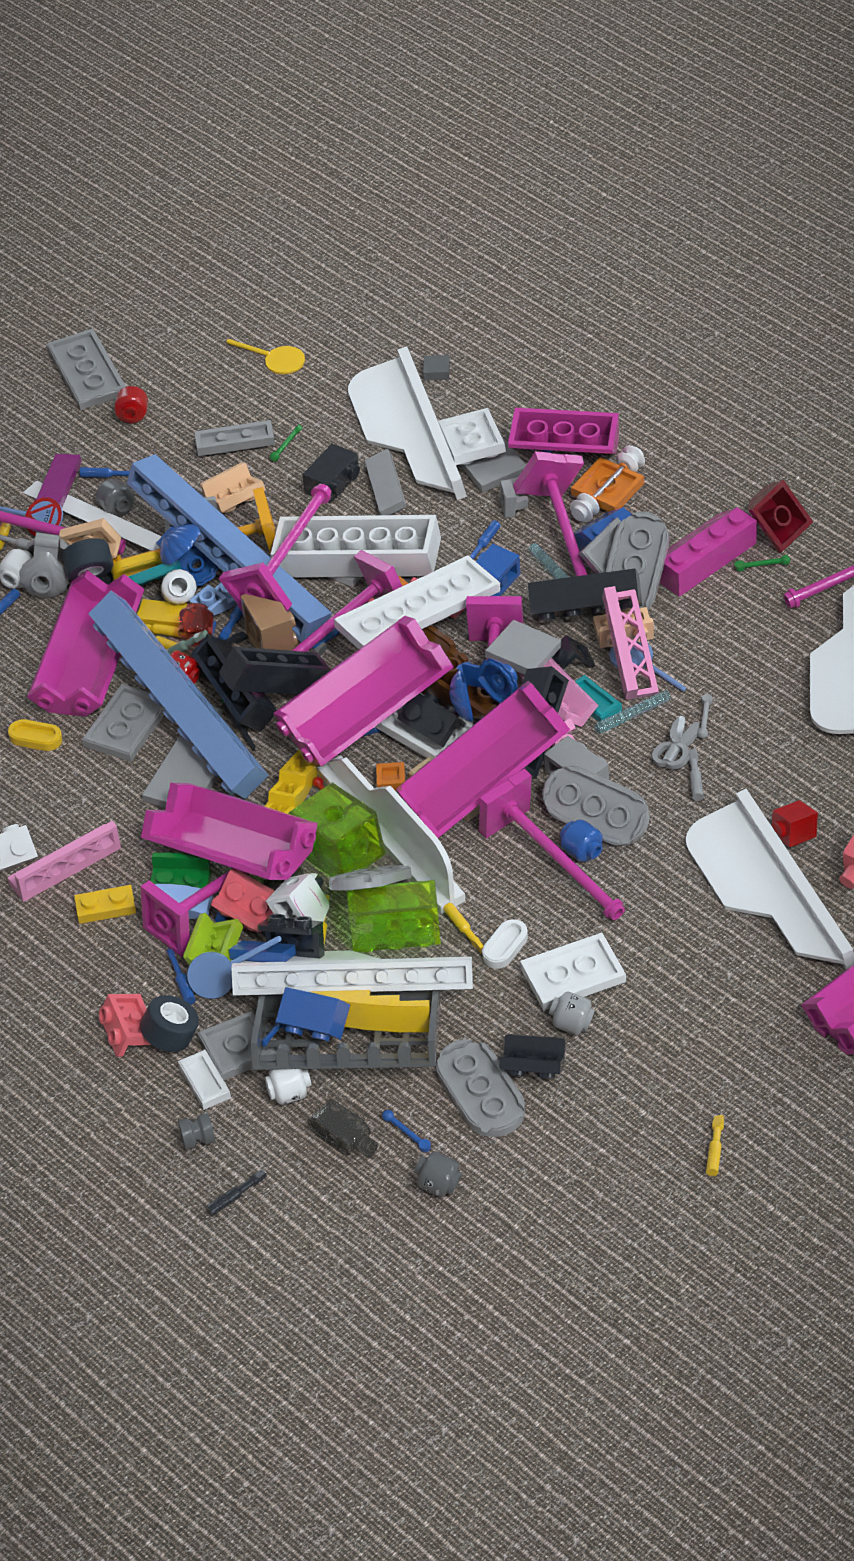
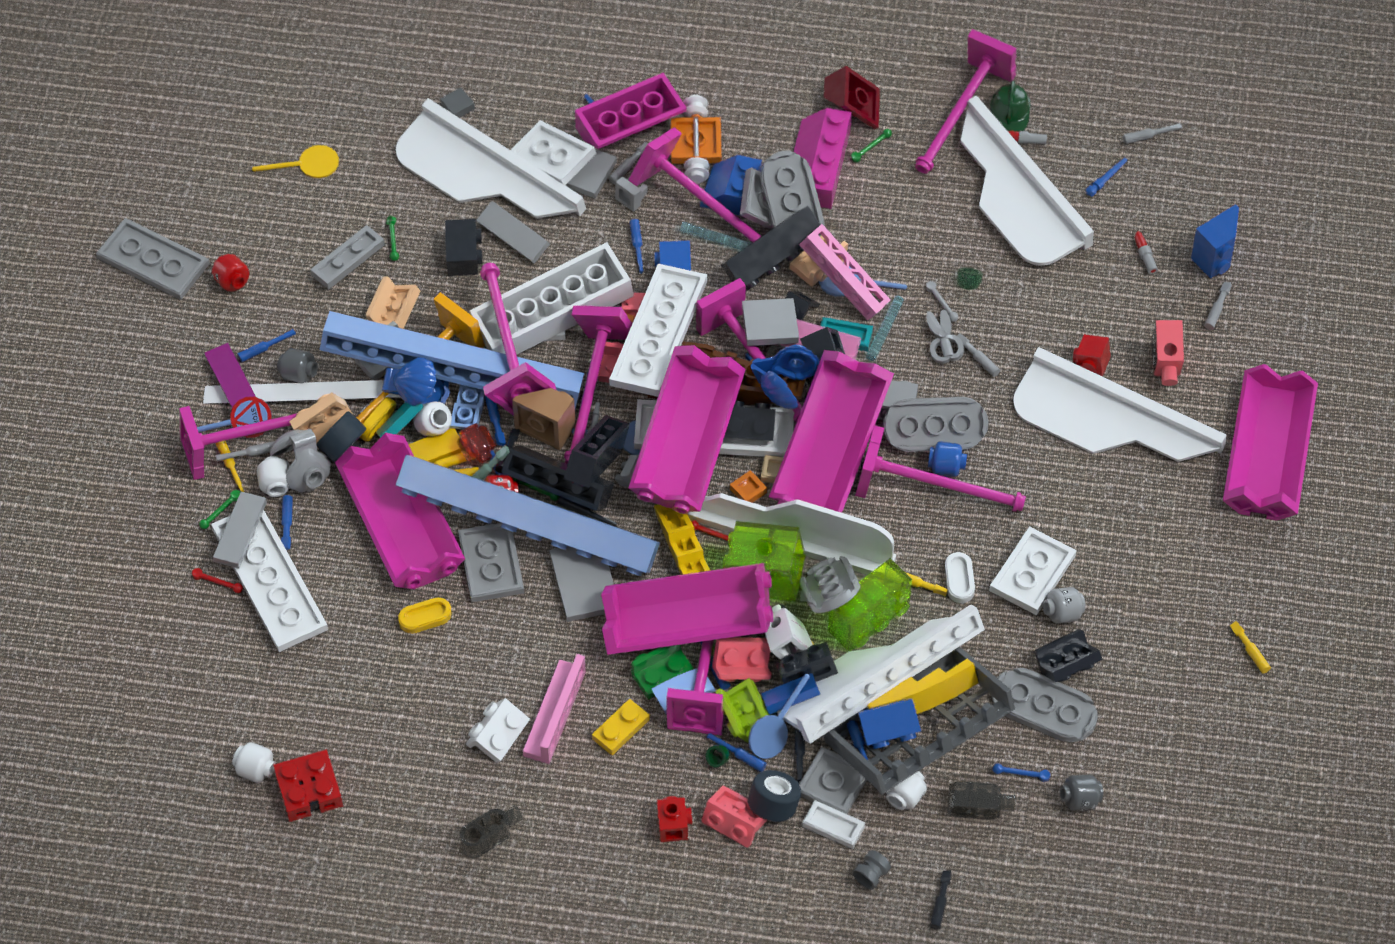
camera: 40 degrees left, 10 degrees up
(72, 996) = (673, 819): none -> red brick
(159, 968) = (715, 759): none -> dark green hinge
(231, 1006) = (799, 751): none -> black piece
(748, 709) = (969, 278): none -> clear green piece

